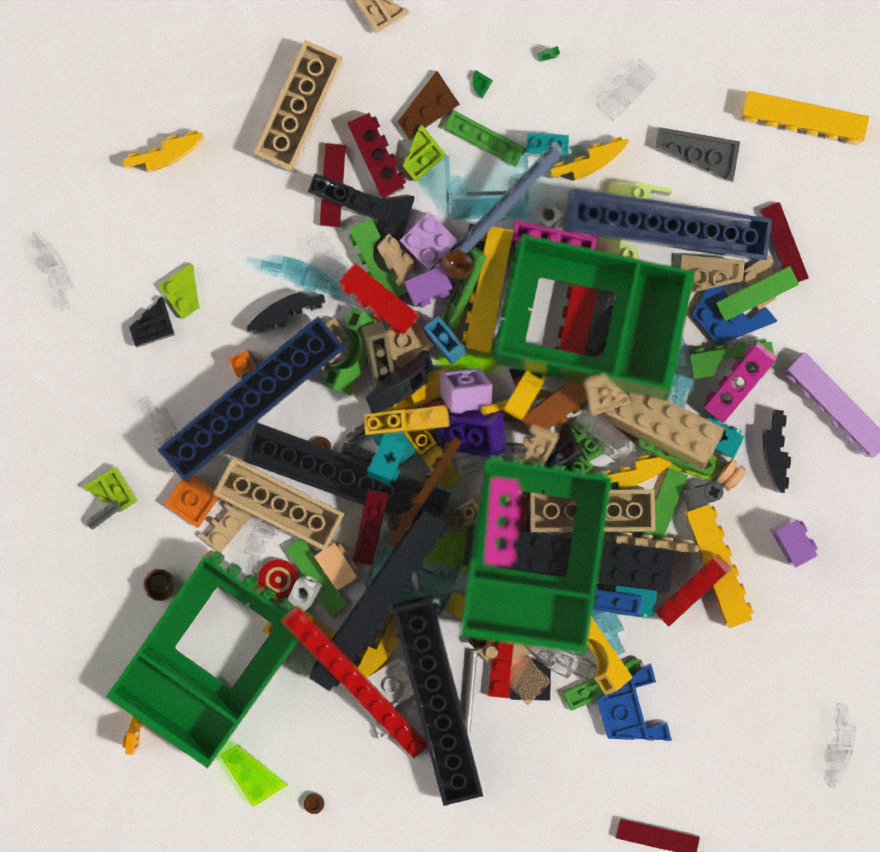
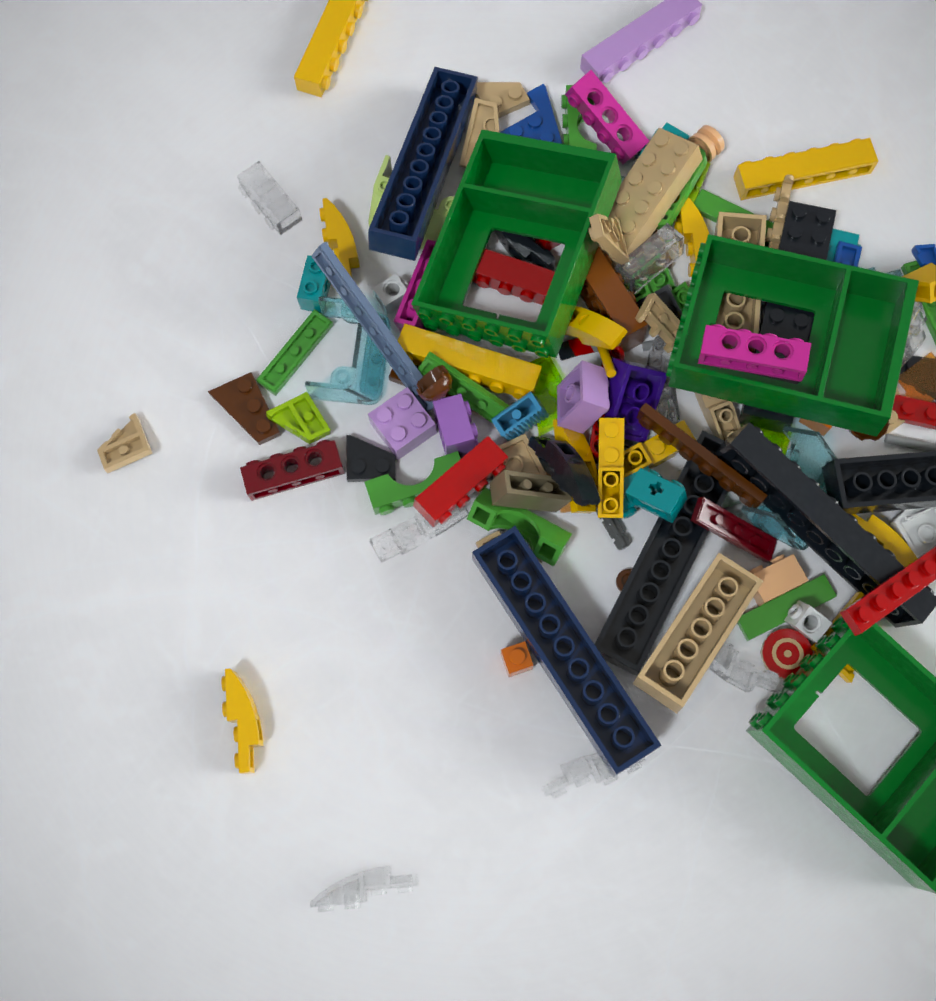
camera: 80 degrees left, 15 degrees down
(103, 514) = (688, 865): dark grey axle -> none
(112, 487) = (657, 849): lime wing -> none
(153, 325) = (453, 766): black wing -> none
(159, 584) = (785, 805): reddish brown hair -> none
(182, 291) = (417, 723): lime wing -> none
(192, 500) = (681, 747): orange plate -> none
(226, 528) = (717, 709): tan hinge -> none
(276, 313) = (460, 609): black slope -> none
(299, 106) = (217, 548): tan brick -> none
(310, 276) = (421, 564): clear light blue slope -> none
(333, 169) = (318, 525): dark red tile -> none
(349, 198) = (337, 504): black slope -> none
(358, 452) = (641, 534): dark grey axle -> none
(396, 258) = (415, 460): tan wing -> none
(455, 604) = (838, 440): yellow panel -> none
(481, 83) = (233, 348): green tile -> none
(548, 54) = (214, 271): green tile -> none
(693, 590) = (834, 188): red brick -> none
(698, 495) = (725, 174): dark grey piece -> none
(703, 151) = (350, 133): dark grey wing -> none
(757, 293) = (512, 95): bright green tile -> none
(775, 460) = (692, 102): black slope -> none
(784, 241) = (477, 65): dark red tile -> none
(794, 542) = (787, 88): medium lavender brick -> none

